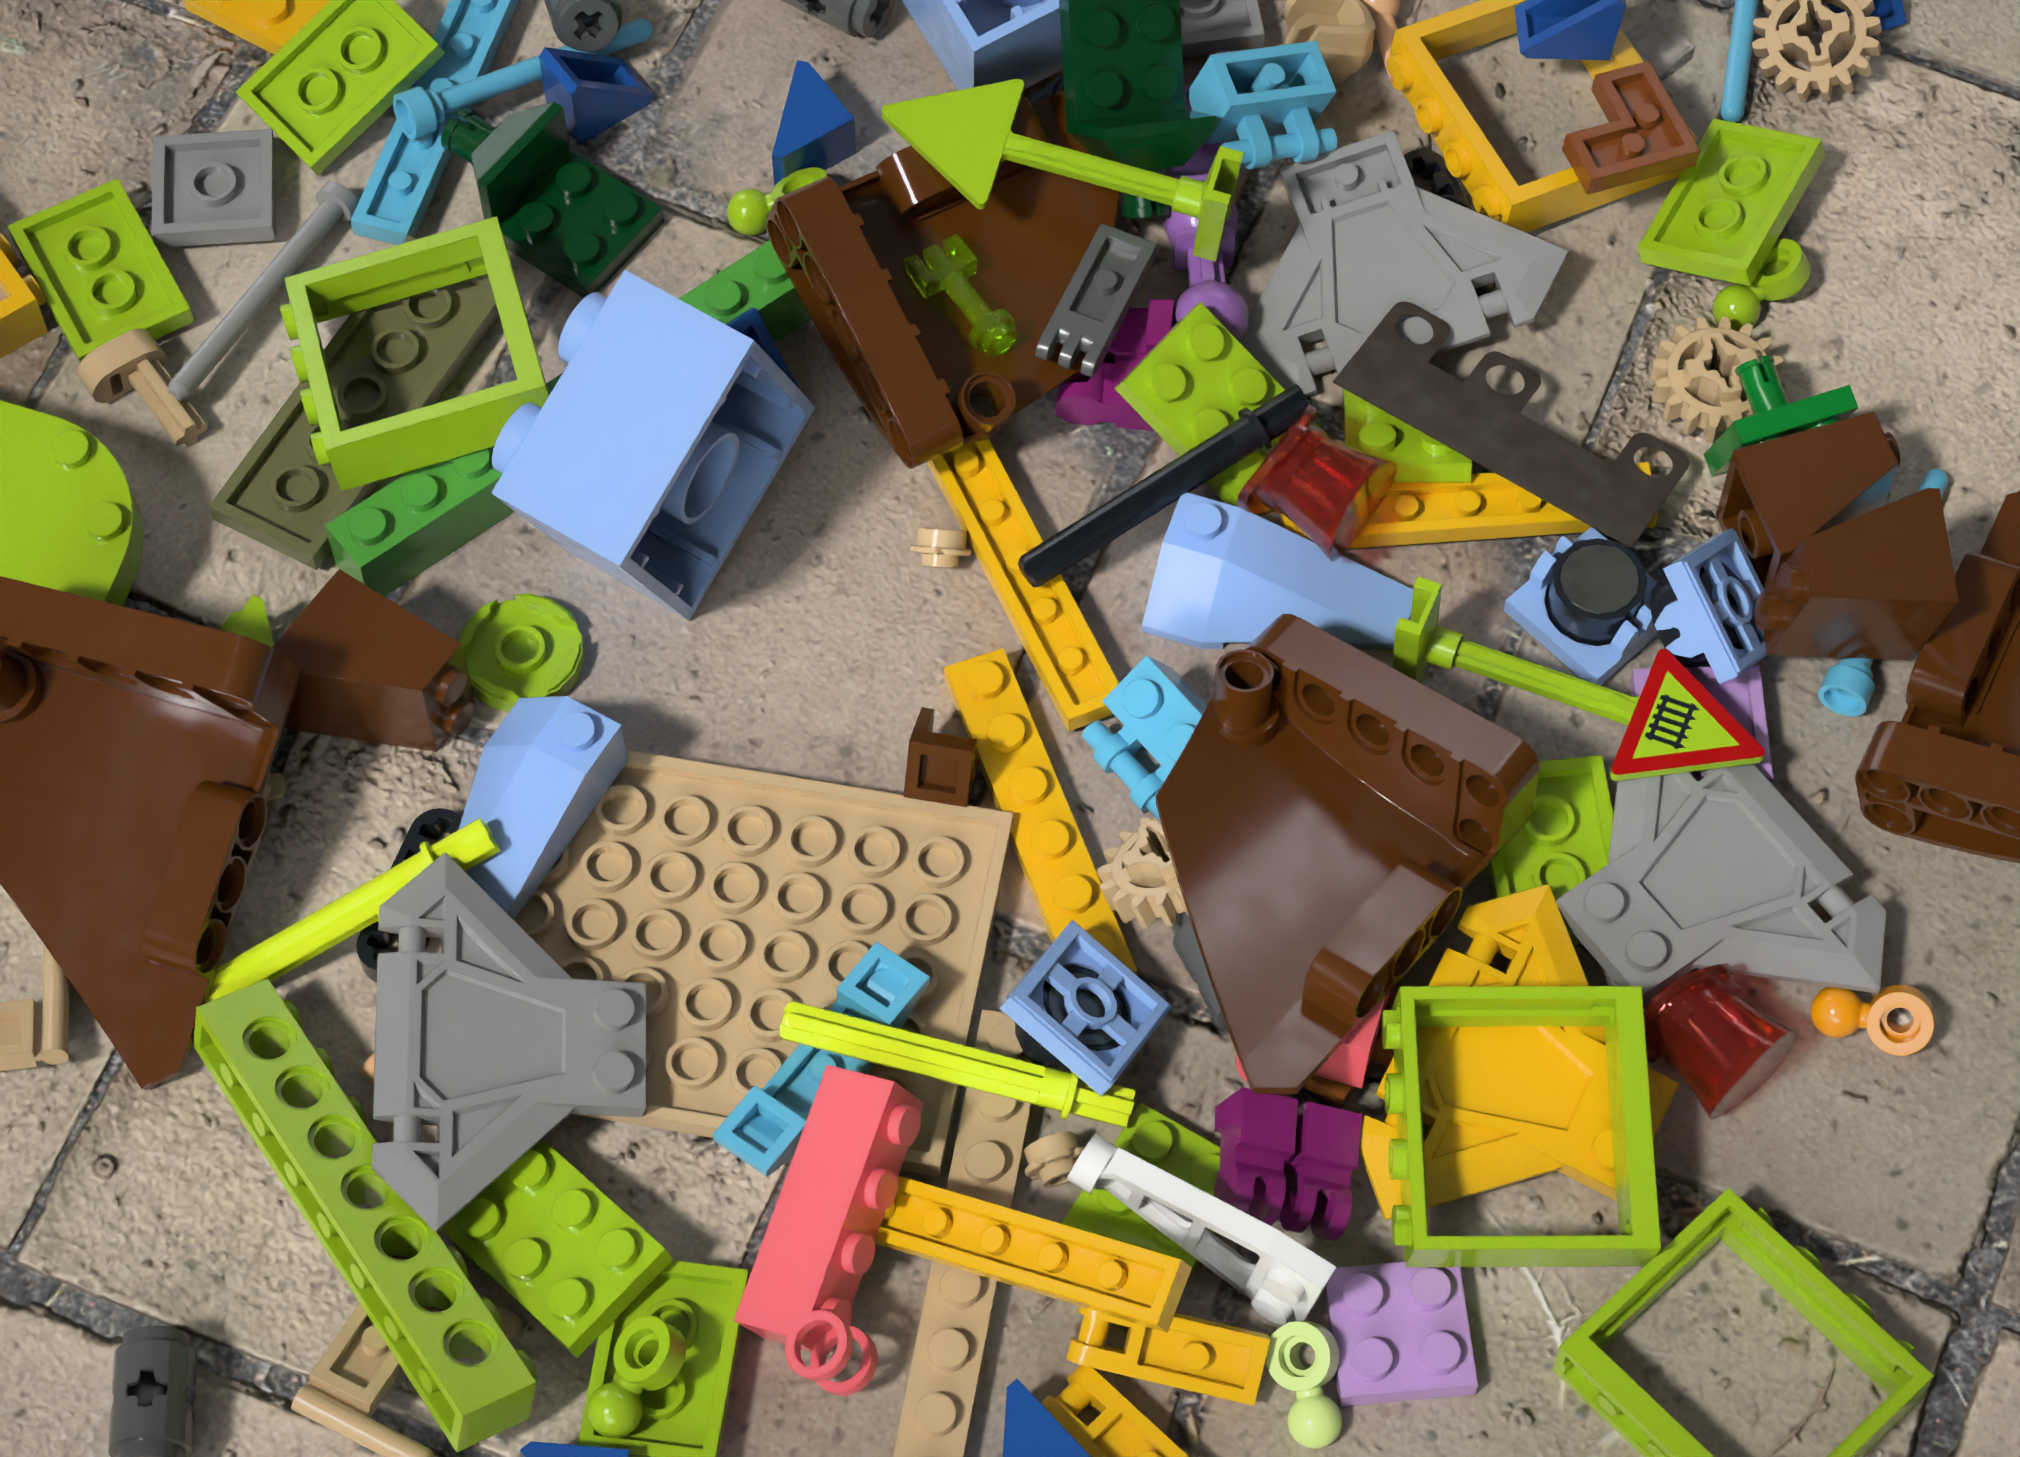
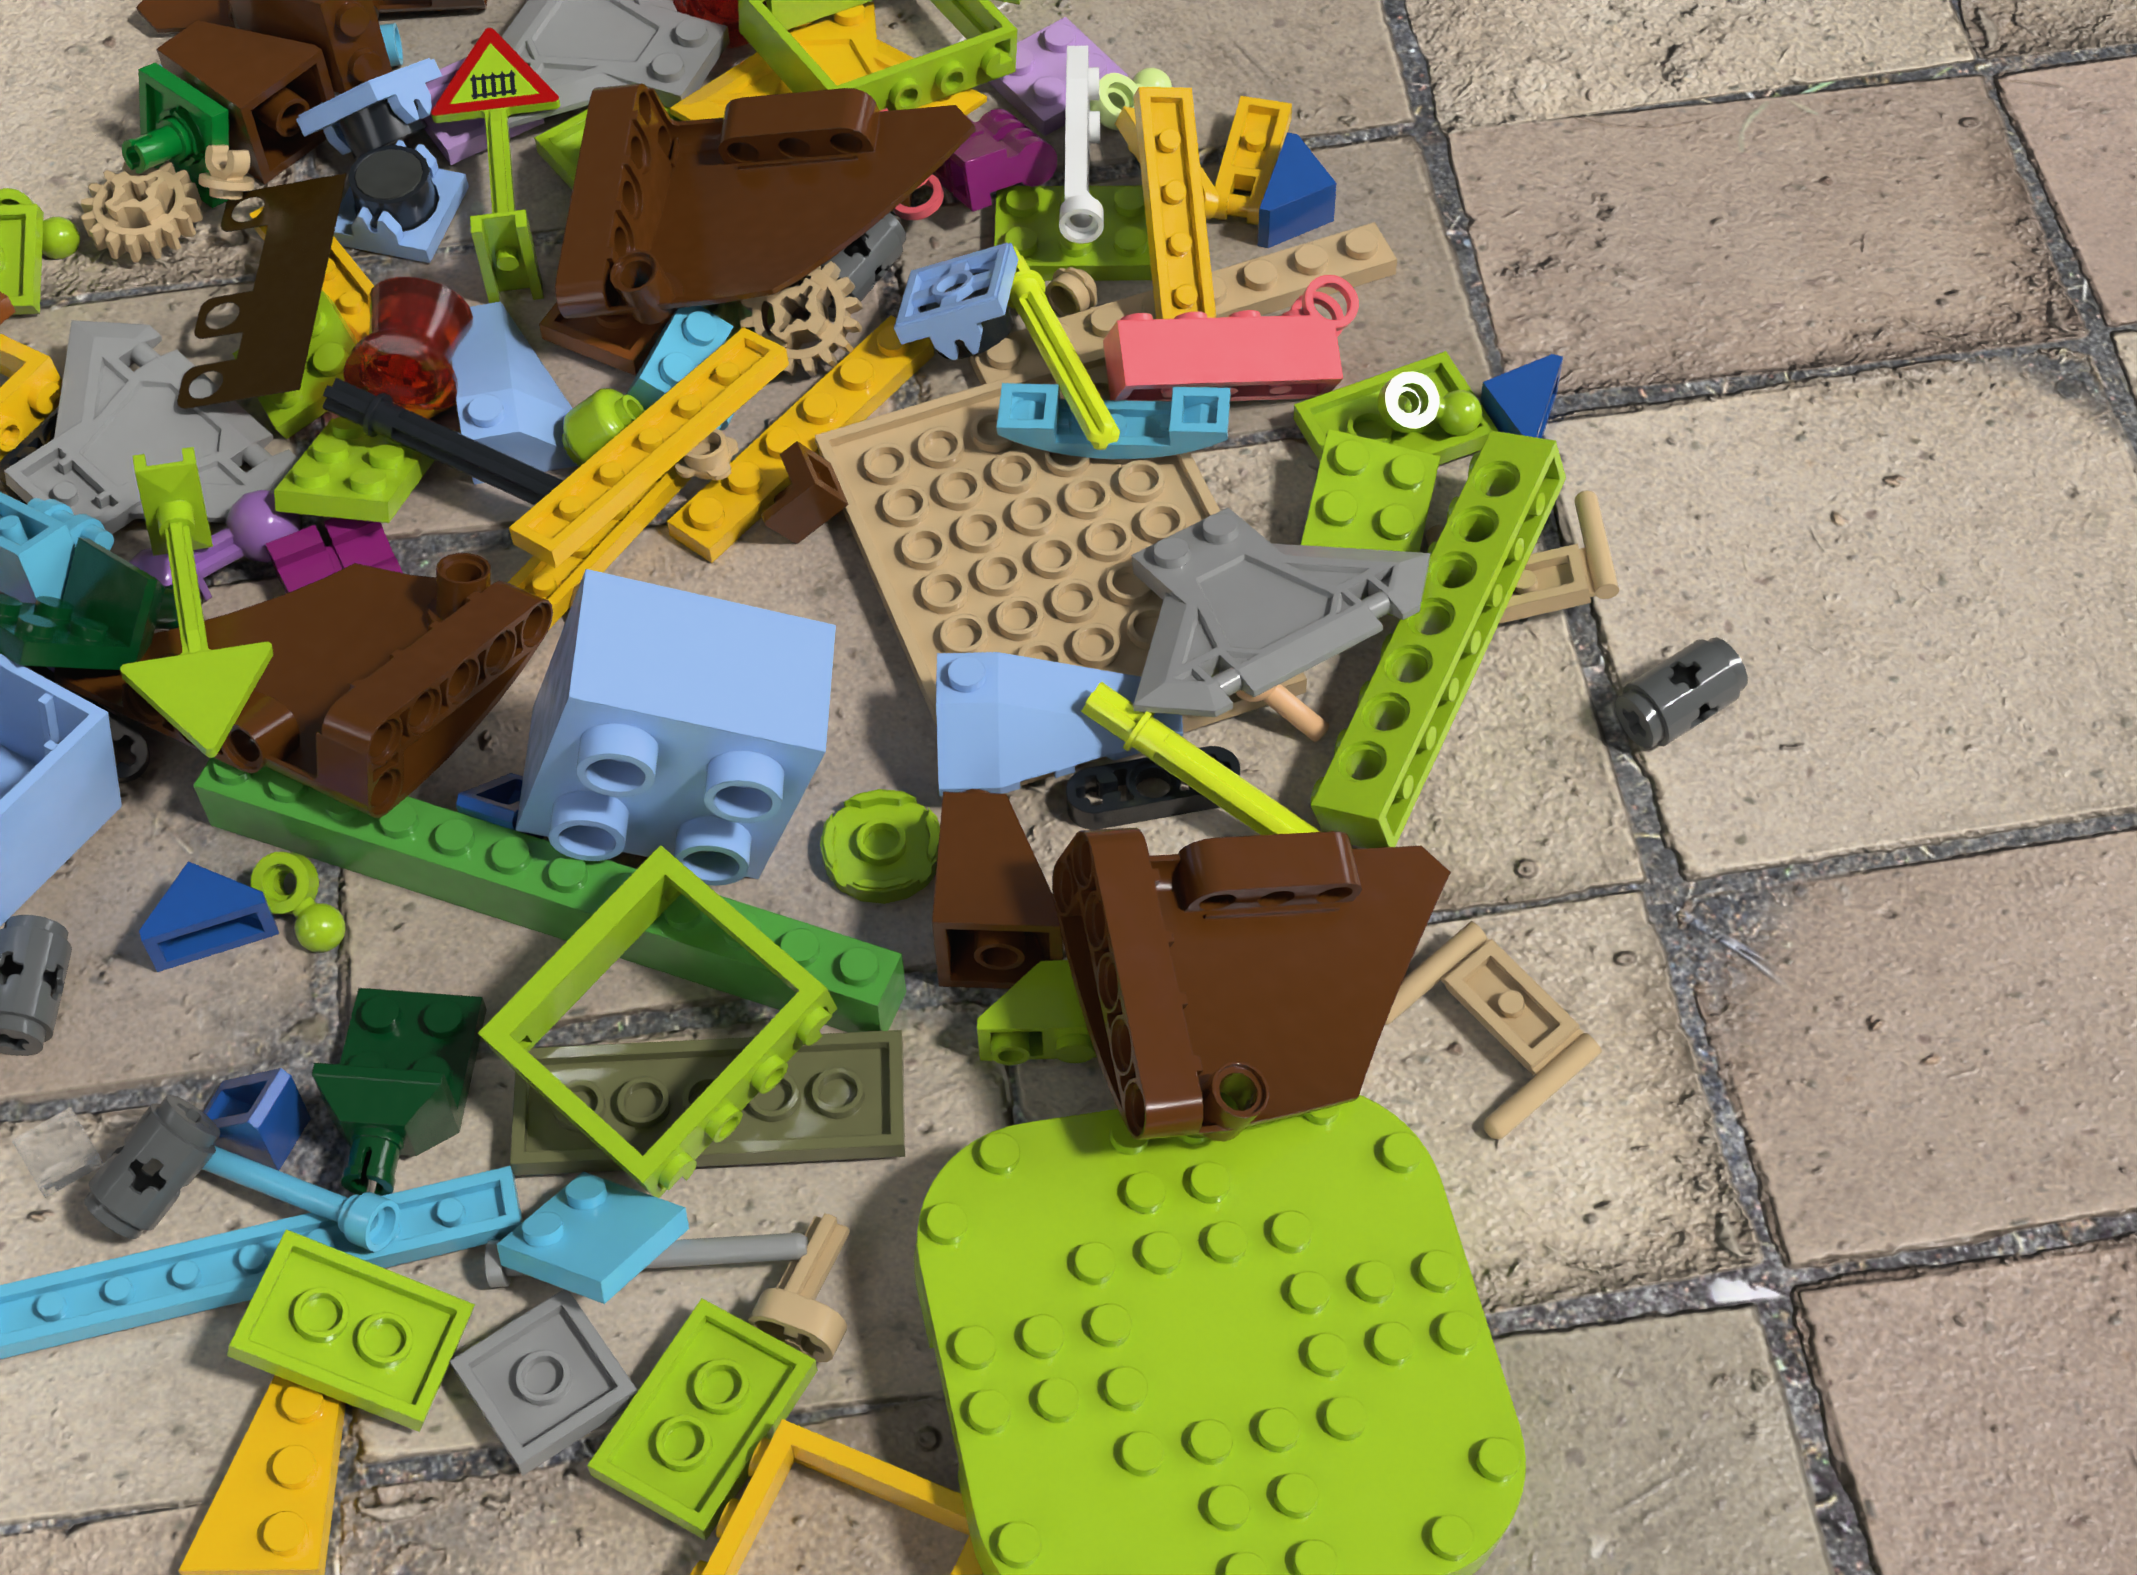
camera: 120 degrees left, 5 degrees down
(280, 239) = (593, 1237): none -> medium azure plate
(991, 330) = (323, 685): clear neon green hinge -> none
(1048, 684) = (709, 458): none -> tan plate
(1053, 630) = (648, 447): none -> yellow plate
(1097, 299) = (305, 573): dark grey hinge -> none
(1136, 626) = (597, 422): none -> lime head
(1690, 443) = (227, 172): none -> tan plate

